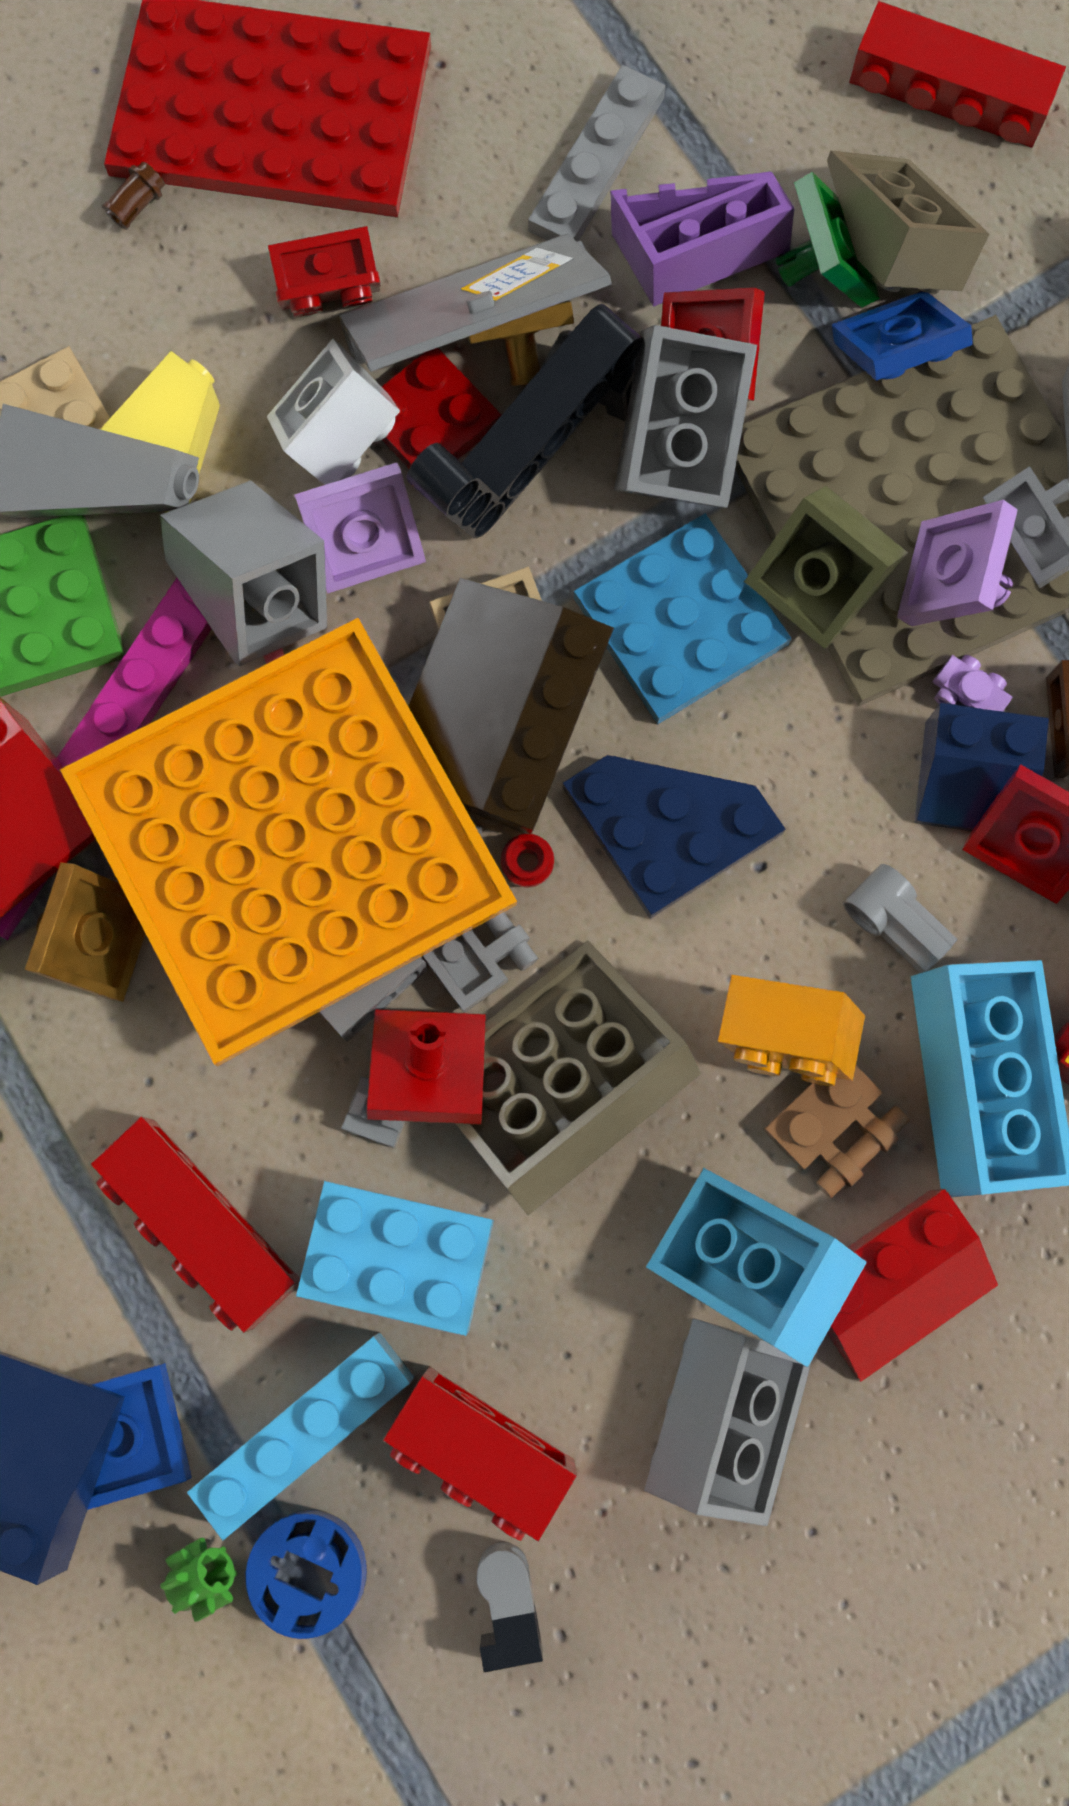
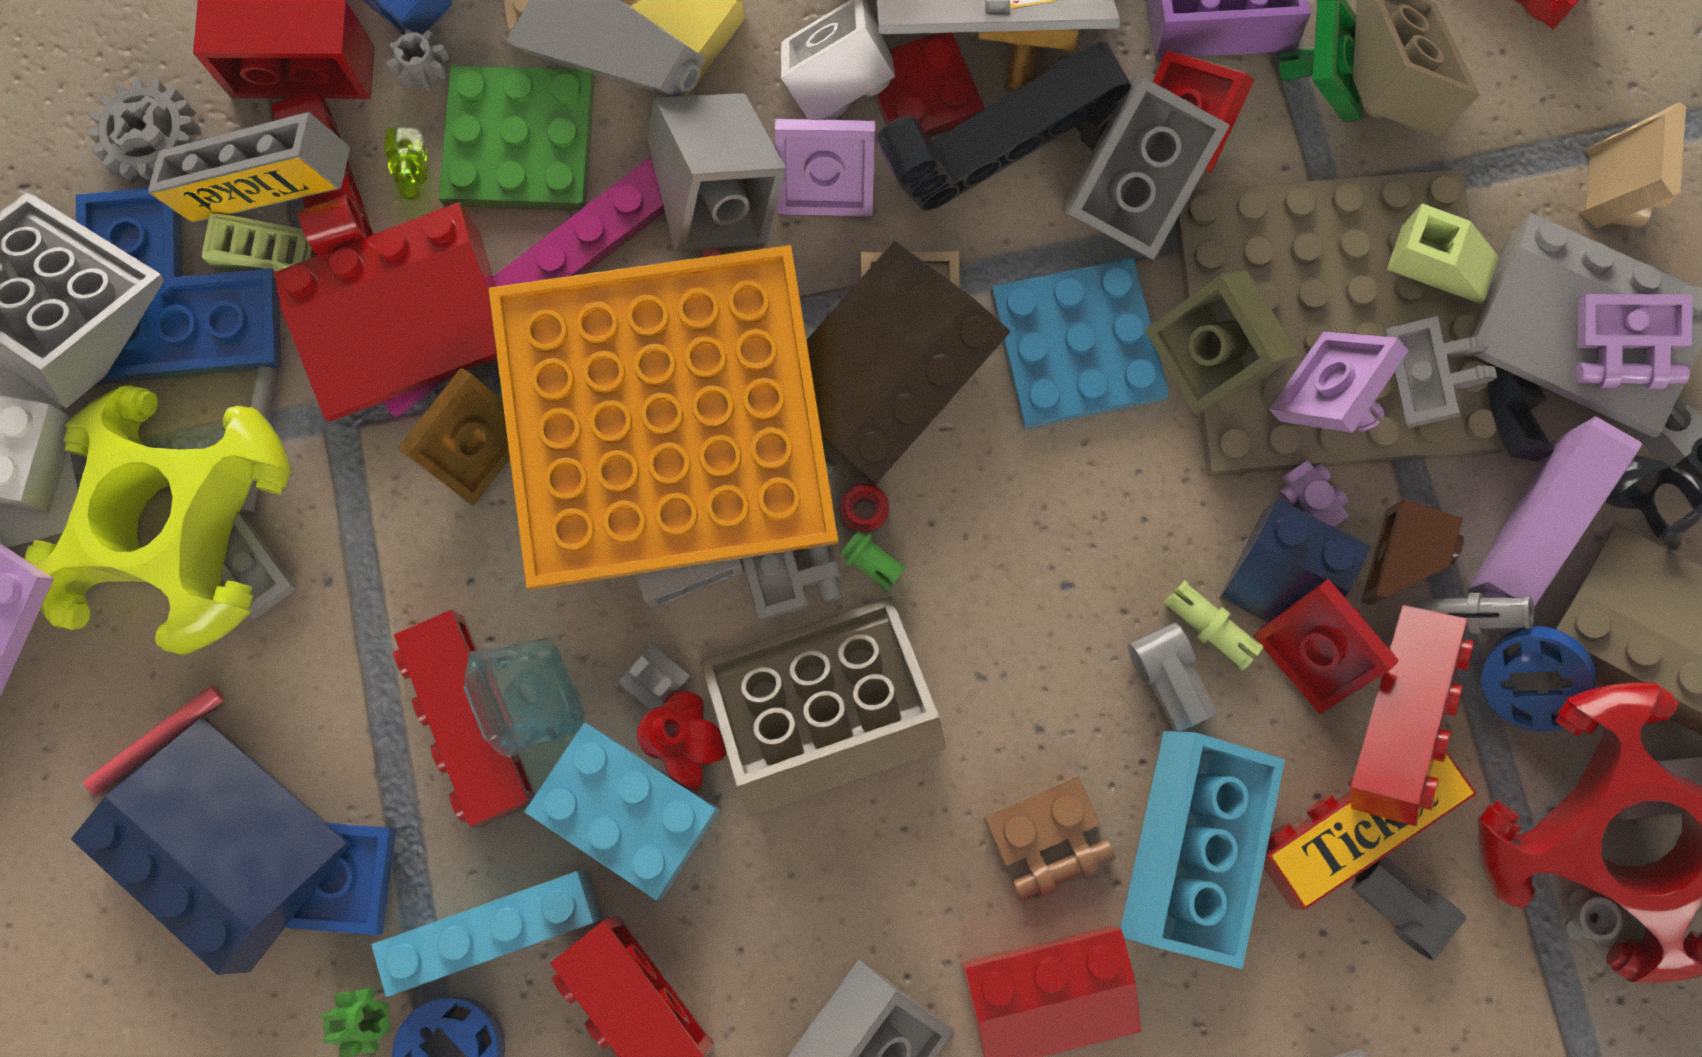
camera: 20 degrees right, 0 degrees up
(248, 1178) = (522, 695): none -> clear light blue slope
(427, 1067) = (709, 656): red tile -> none
(430, 1162) = (681, 738): none -> red plate
(556, 910) = (872, 560): none -> bright green pin
(669, 825) = (1001, 523): dark blue plate -> none
(757, 1265) = (928, 935): medium azure brick -> none
(791, 1029) = (1039, 738): light orange brick -> none
(902, 335) = (1368, 159): blue plate -> none
(920, 853) = (1213, 625): none -> yellowish green pin
(1012, 402) = (1444, 254): none -> yellowish green slope

